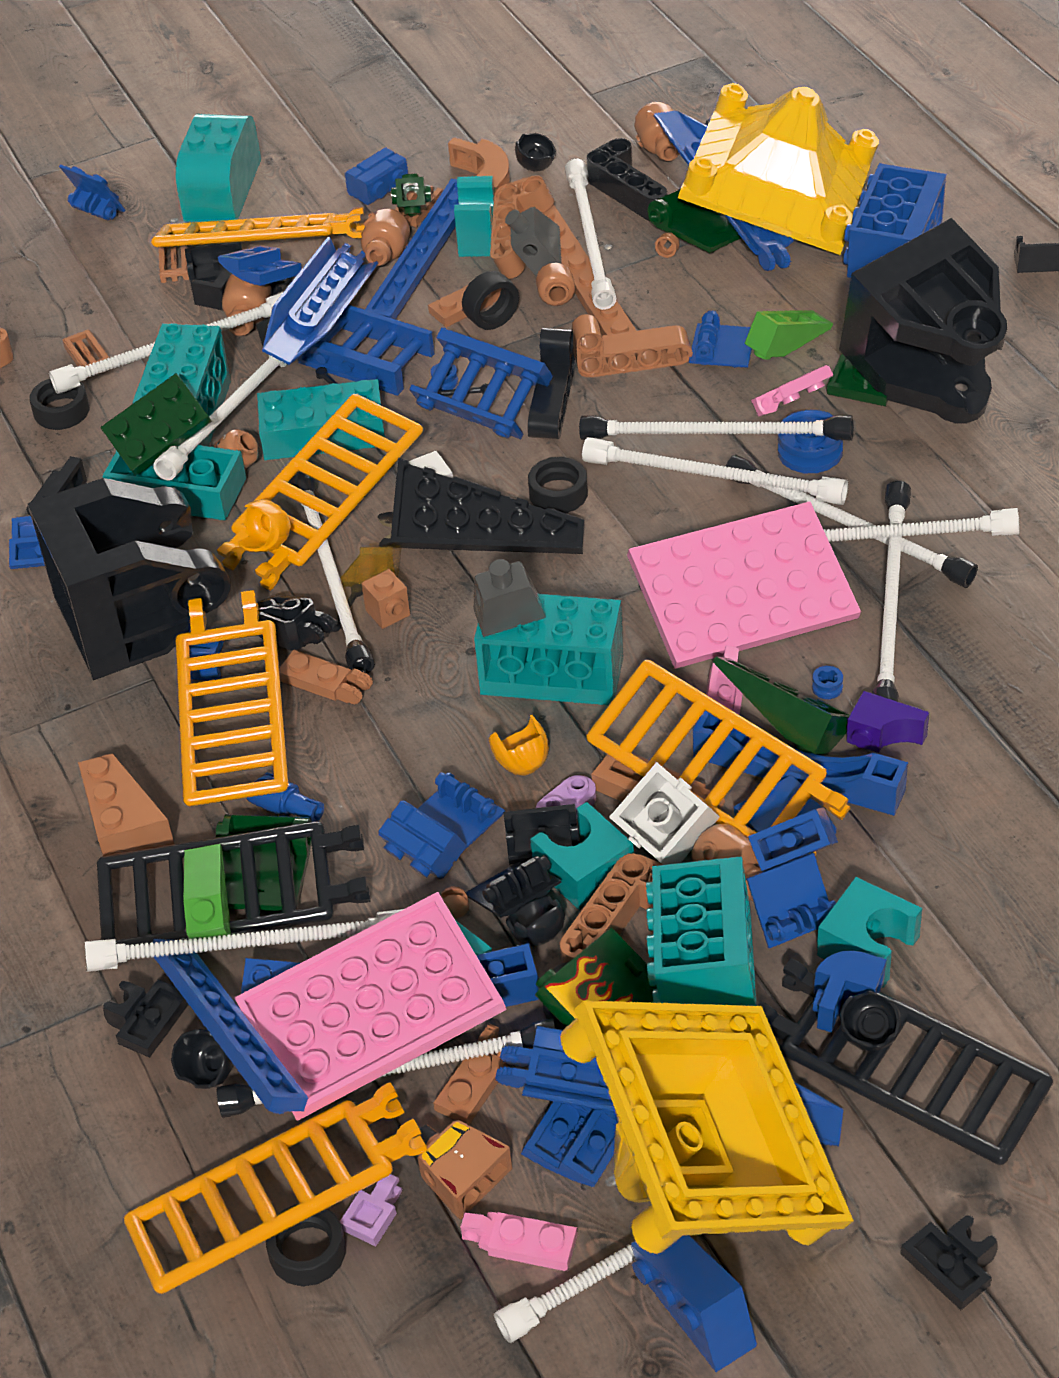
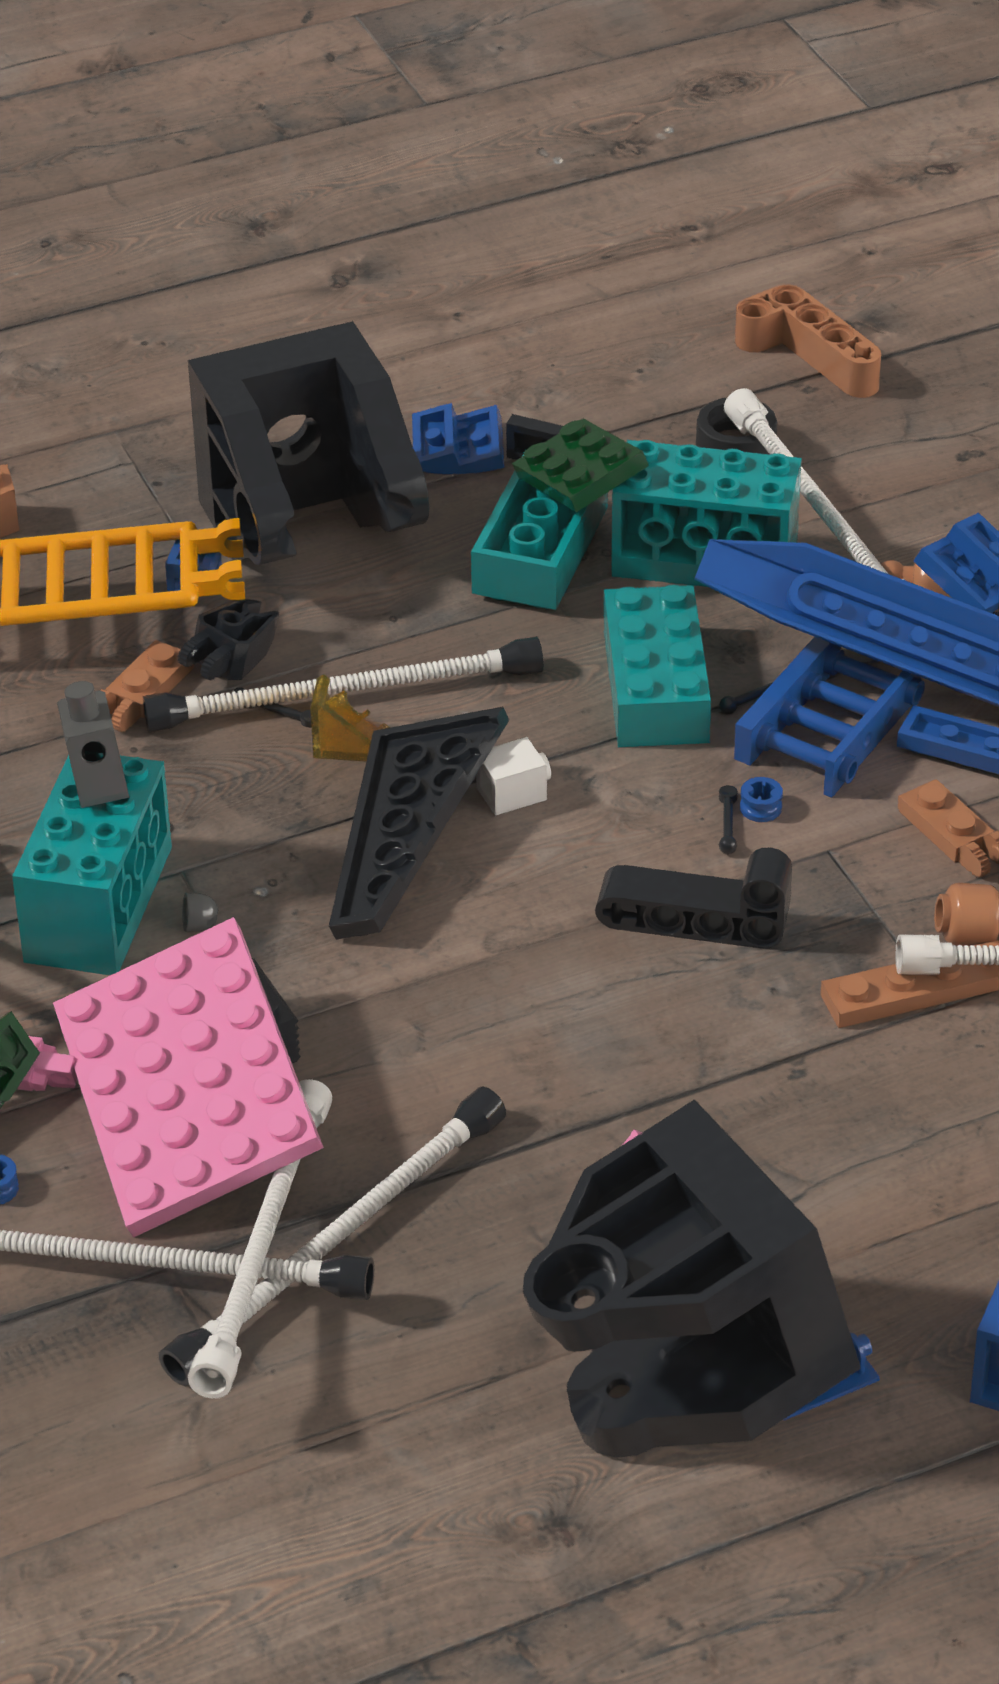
camera: 90 degrees right, 5 degrees down
(75, 355) = (855, 456): nougat tile -> none
(171, 462) = (523, 496): white hose -> none
(240, 441) = (585, 580): nougat head -> none
(265, 526) = (389, 588): light orange hair -> none
(283, 556) = (413, 602): light orange bar -> none
(385, 598) = (260, 728): nougat brick -> none
(479, 289) = (911, 828): black tyre -> none
(479, 355) = (723, 825): blue fence -> none
(558, 469) = (476, 882): black tyre -> none
(627, 351) = (790, 986): nougat beam -> none
(720, 343) = (810, 1116): blue hinge -> none
(784, 331) = (828, 1193): bright green slope -> none
(807, 451) = (524, 1195): blue wheel -> none
(826, 489) = (386, 1193): white hose -> none
(837, 427) = (510, 1197): white hose -> none

